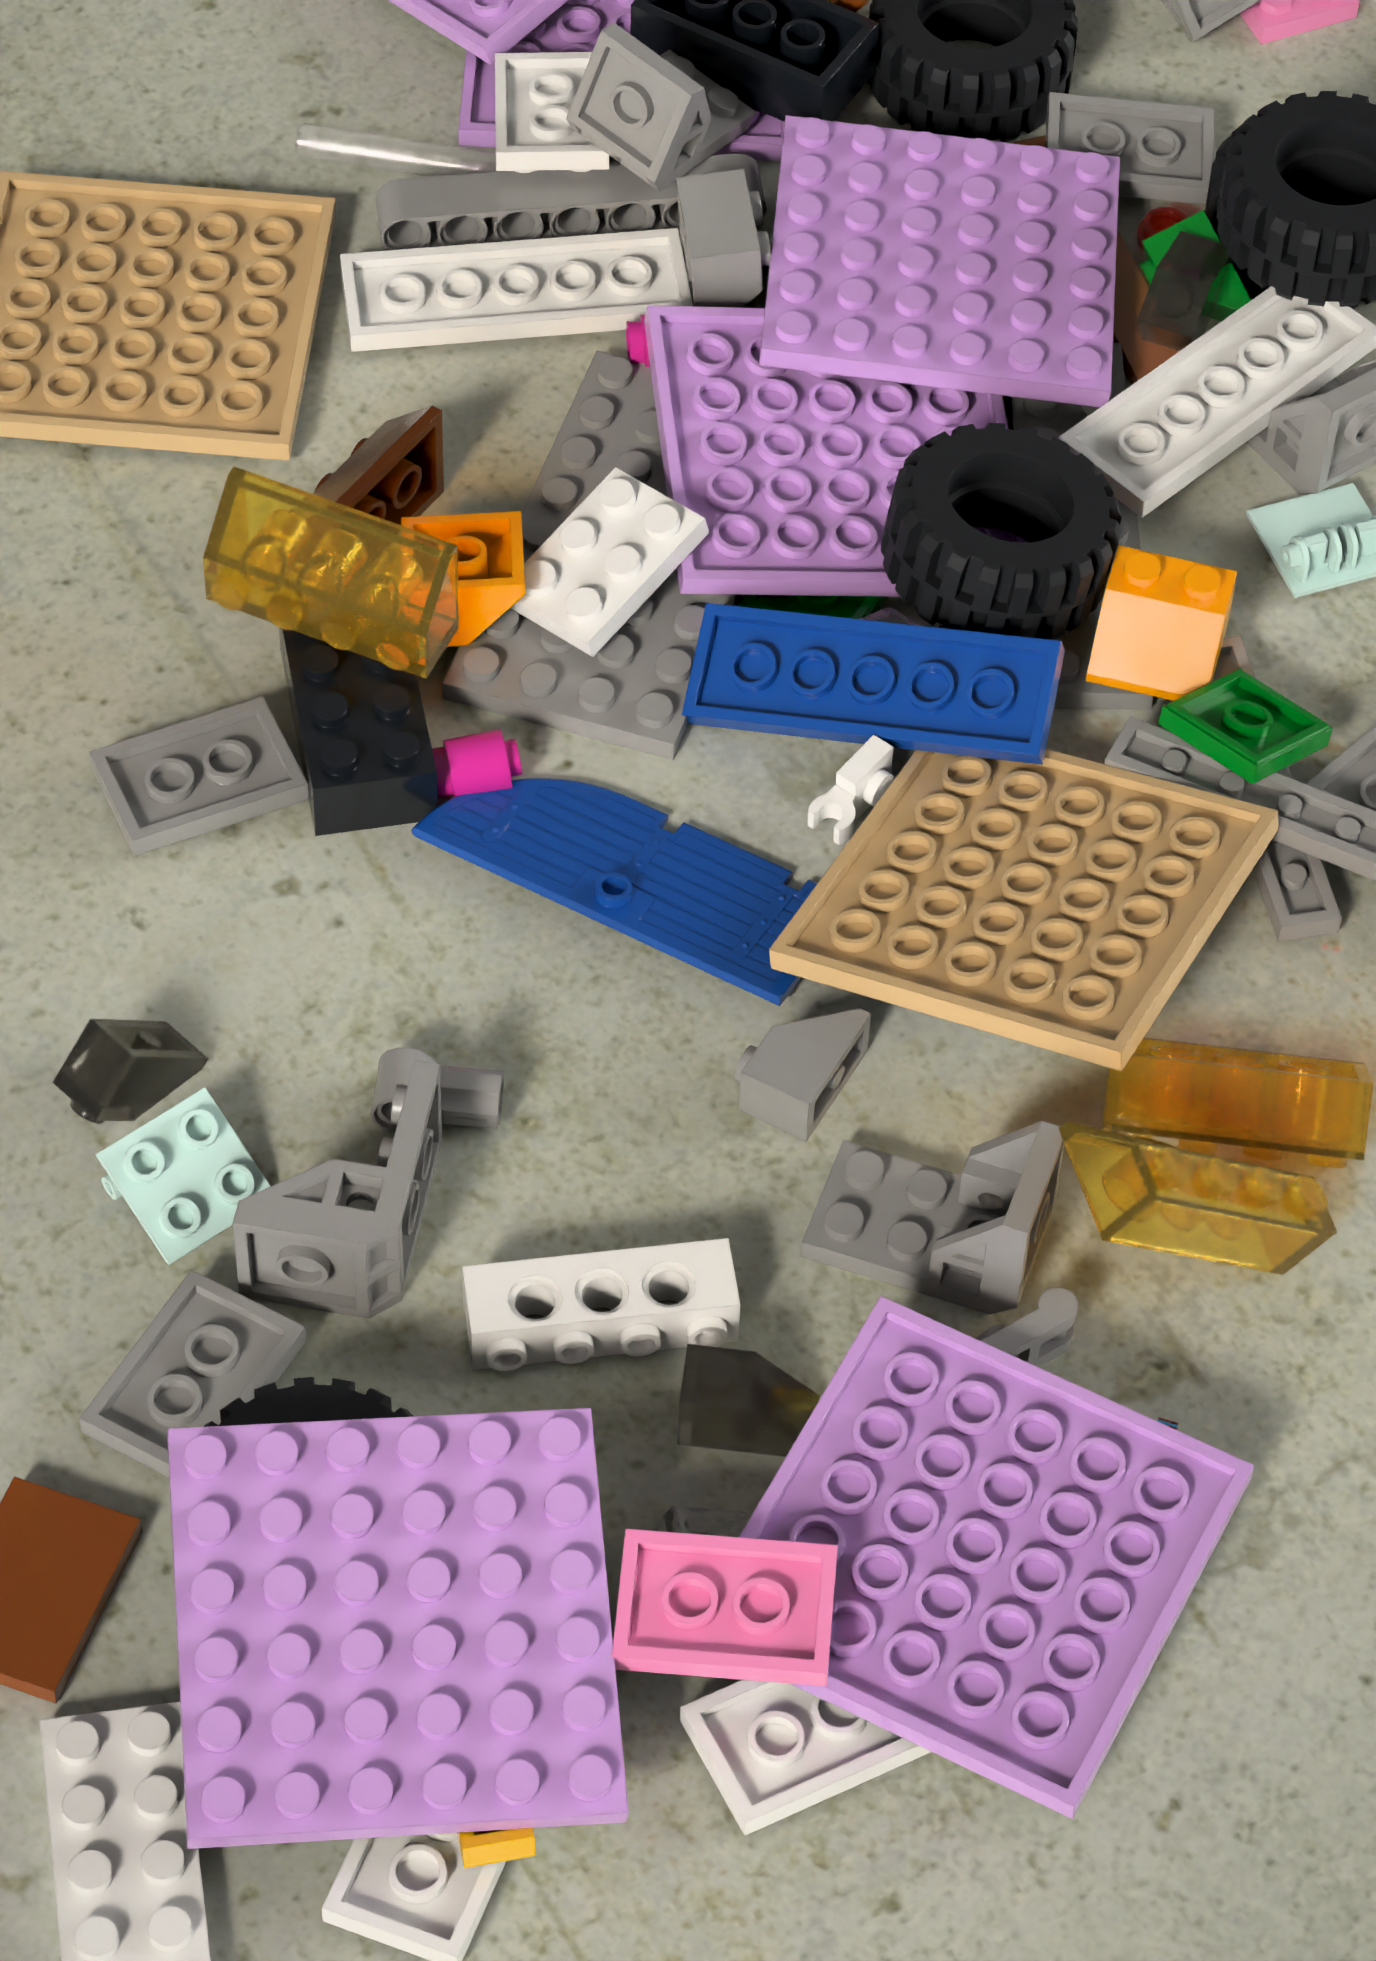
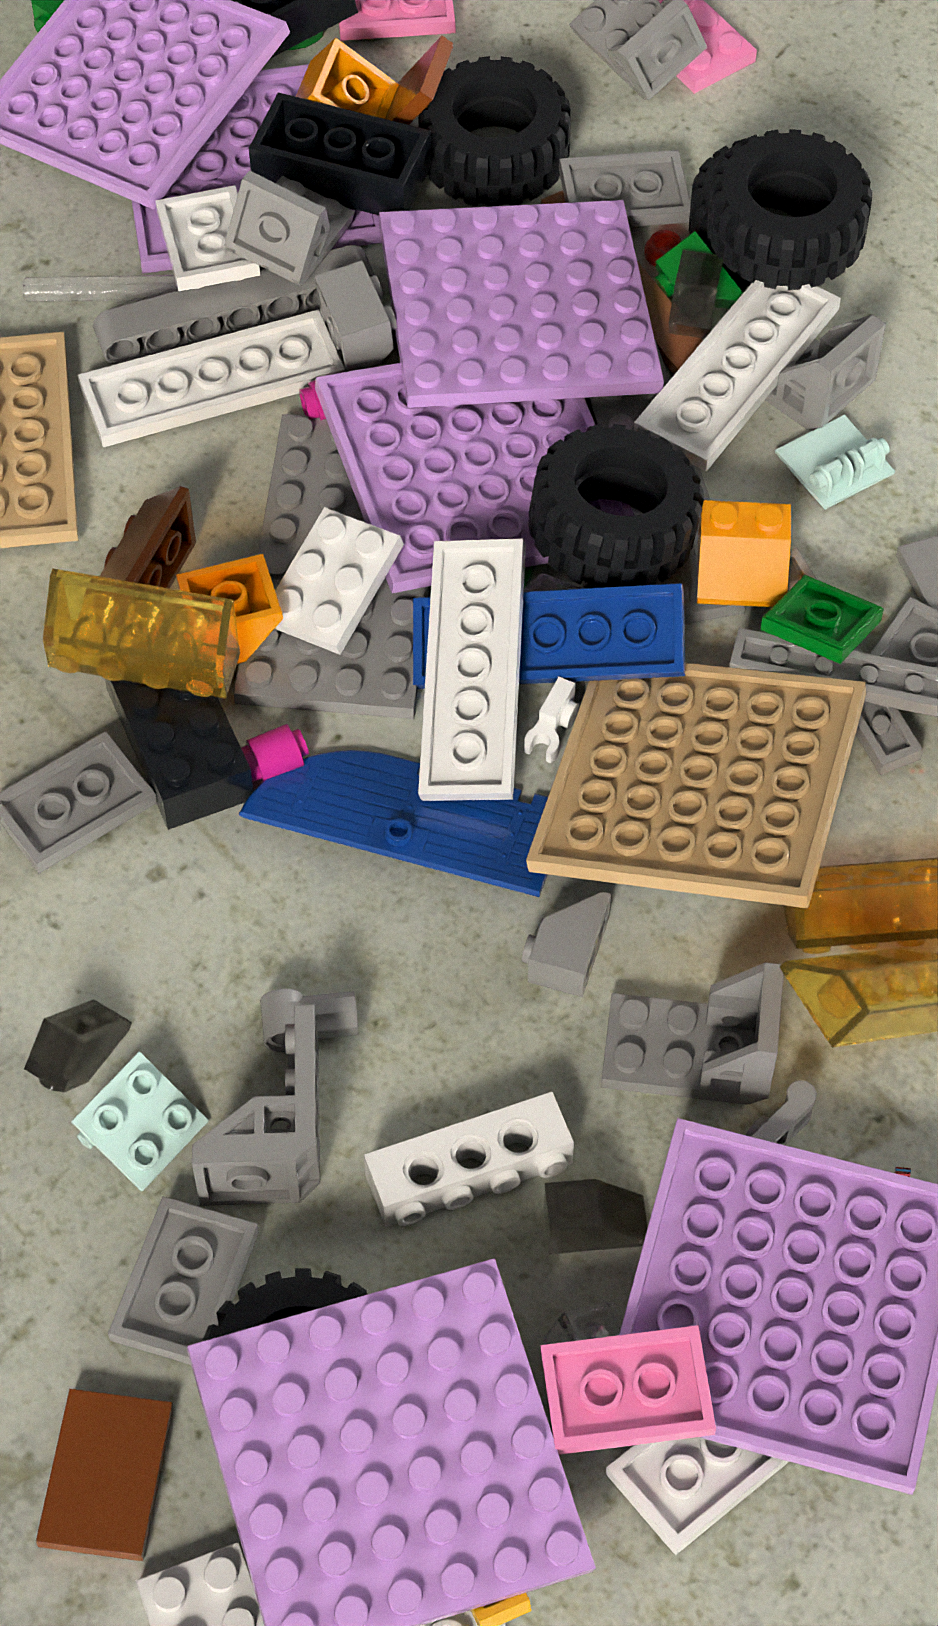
camera: 10 degrees left, 5 degrees up
(759, 704) = (472, 670): none -> white plate

